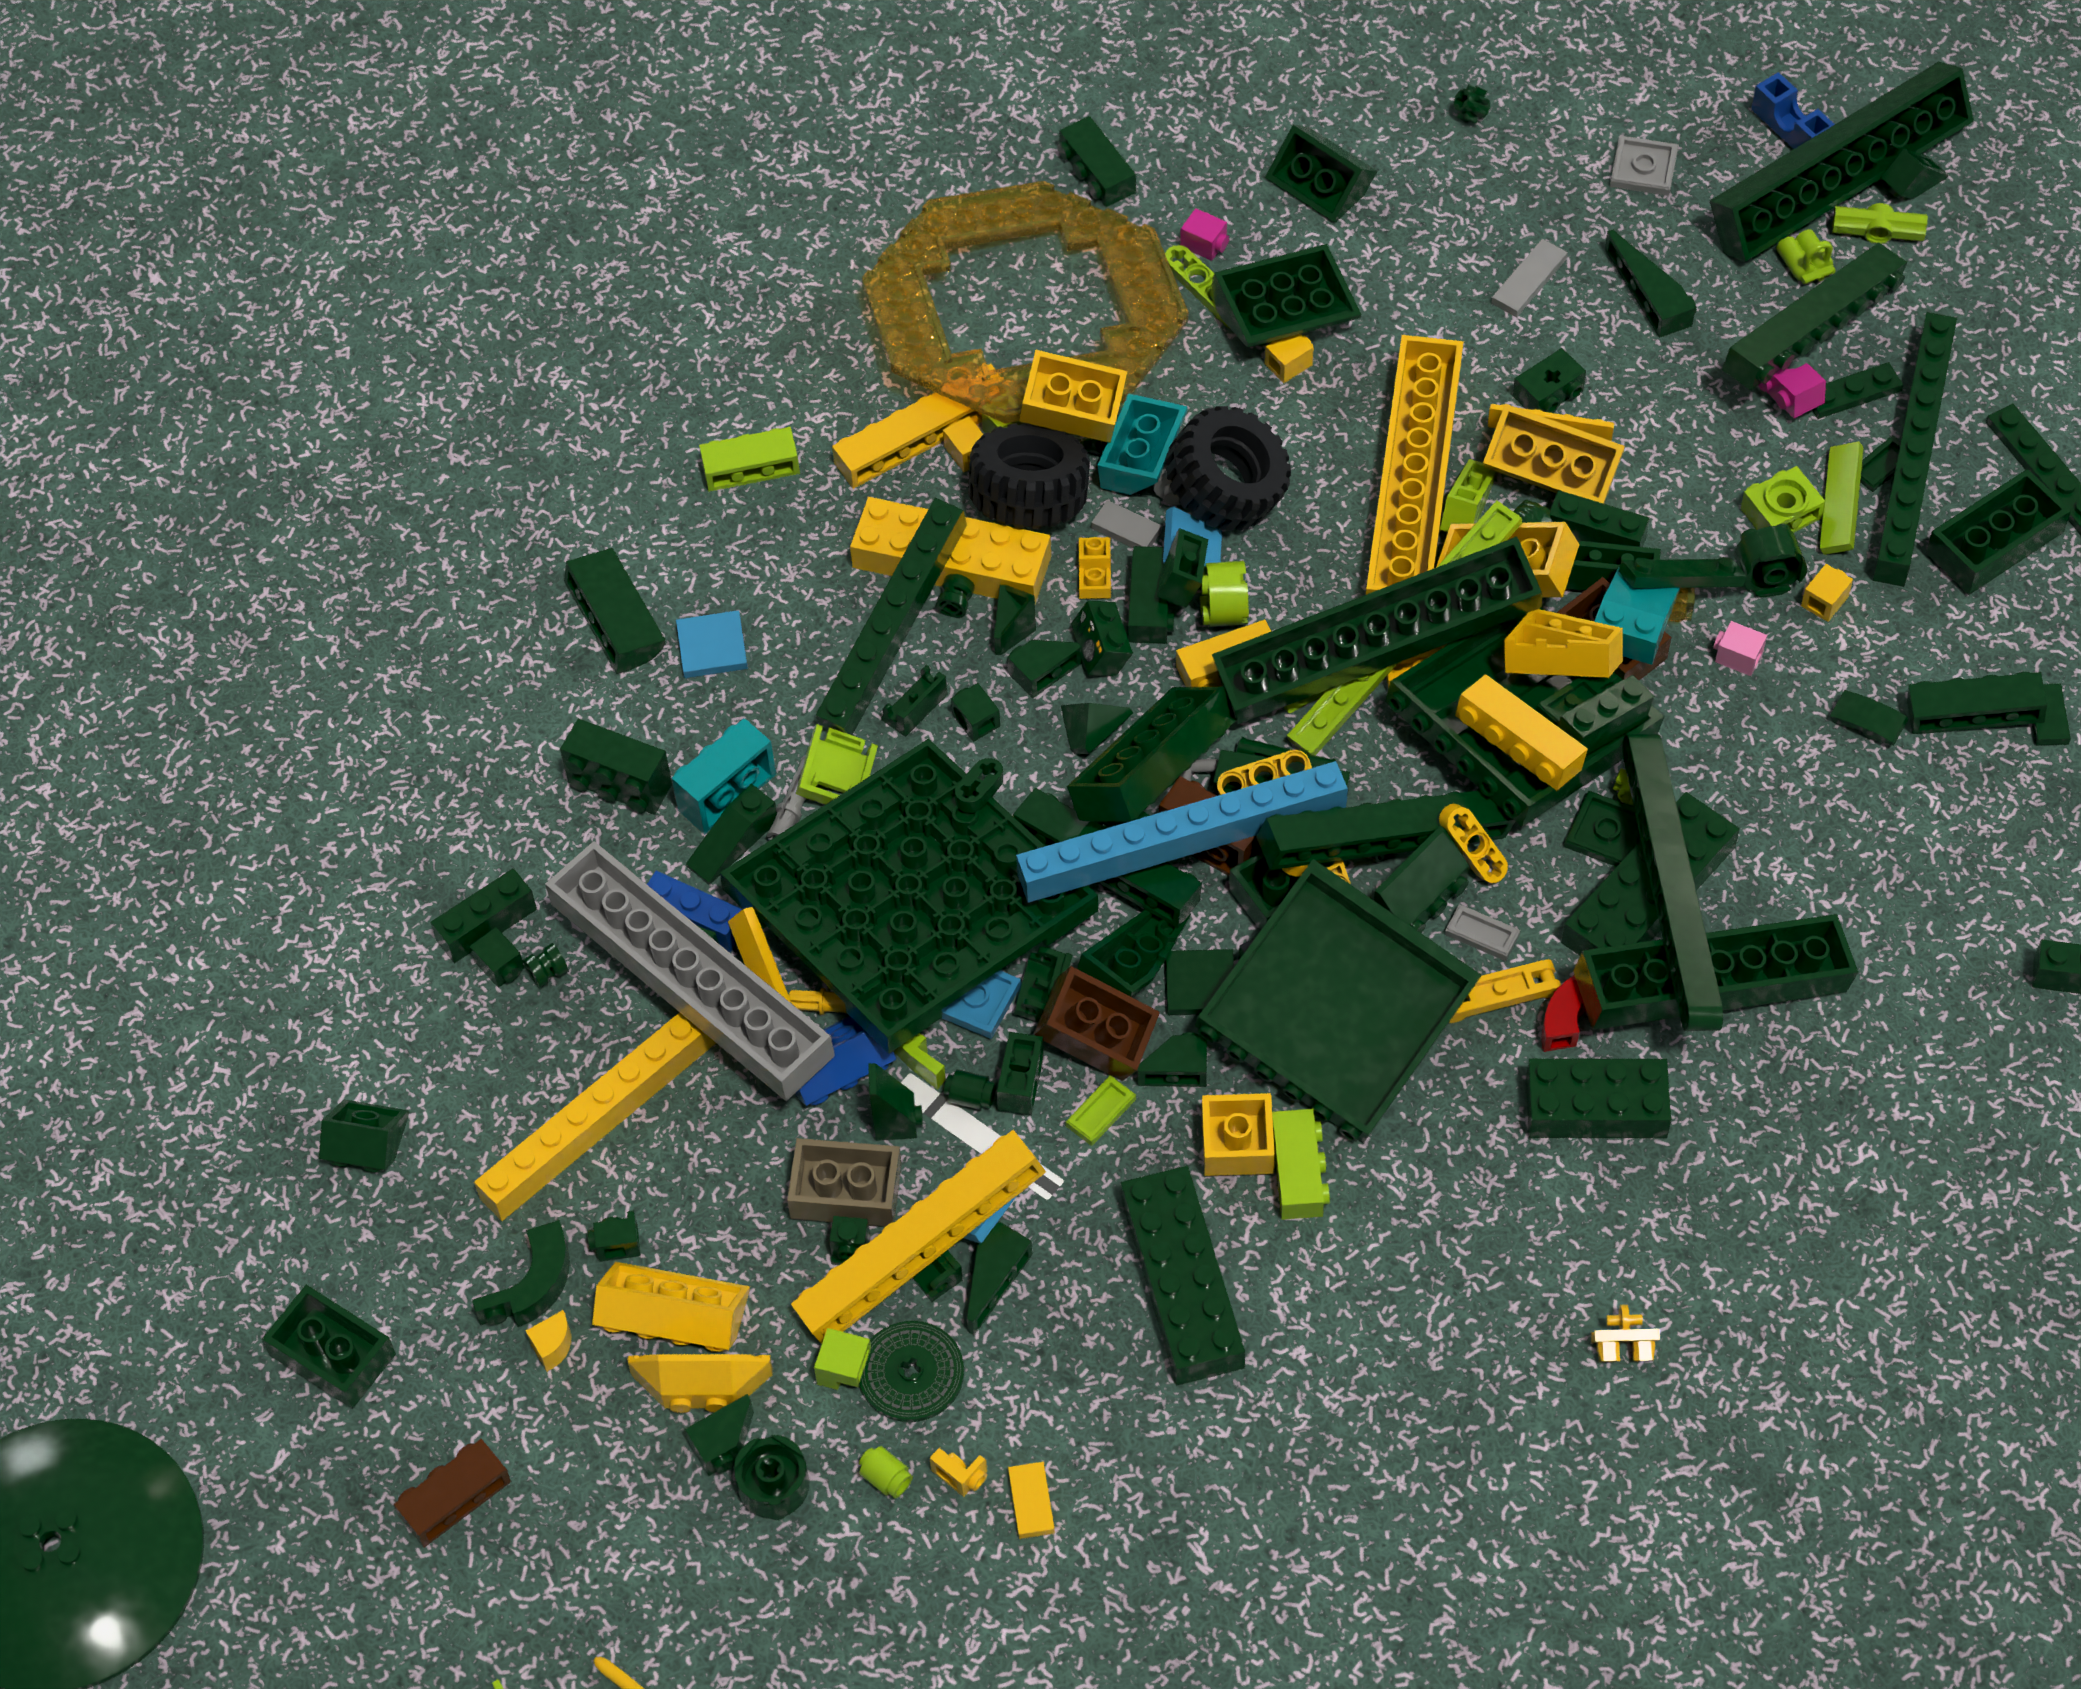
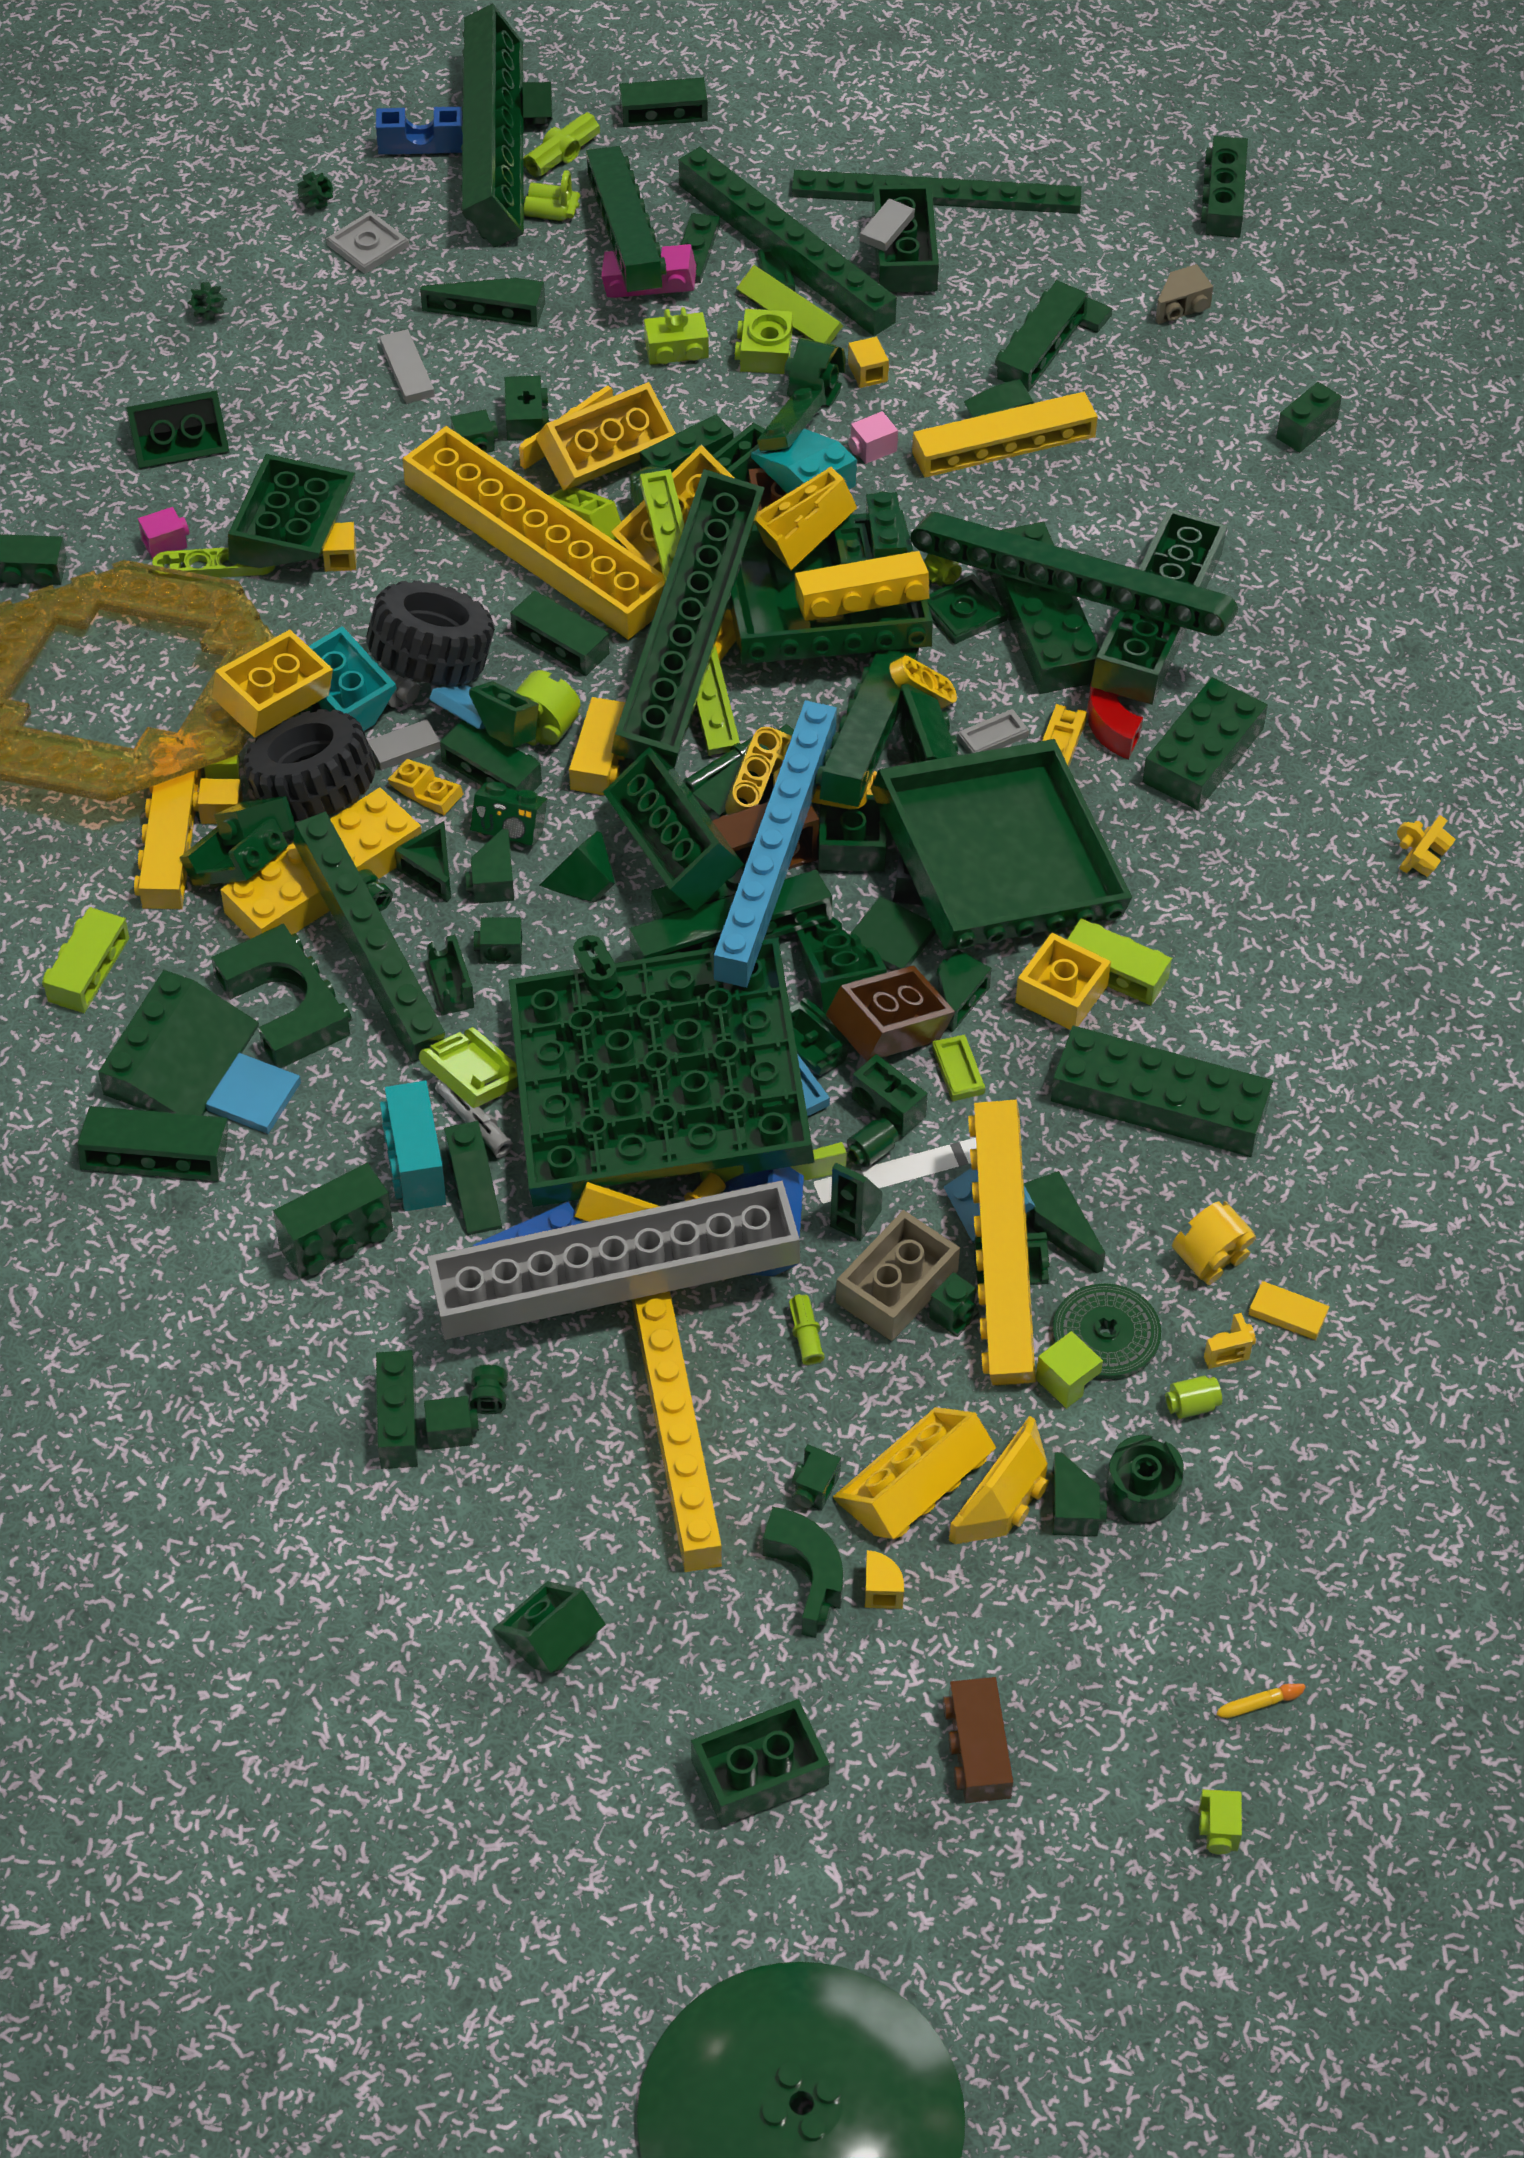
camera: 60 degrees left, 5 degrees down
(710, 568) = (176, 1048): none -> dark green slope
(754, 1149) = (806, 1329): none -> lime axle
(810, 639) = (280, 958): none -> dark green arch
(908, 480) = (214, 863): none -> dark green panel
(945, 473) = (243, 818): none -> dark green slope
(1046, 1399) = (1214, 1241): none -> yellow brick
(1326, 558) = (560, 633): none -> dark green brick
(1489, 367) = (476, 429): none -> dark green brick
(1668, 94) = (315, 190): none -> dark green gear
(1726, 439) = (676, 337): none -> lime brick
(1834, 743) = (1004, 434): none -> yellow brick
(1982, 506) = (887, 224): none -> light grey tile
(2000, 261) = (663, 102): none -> dark green brick

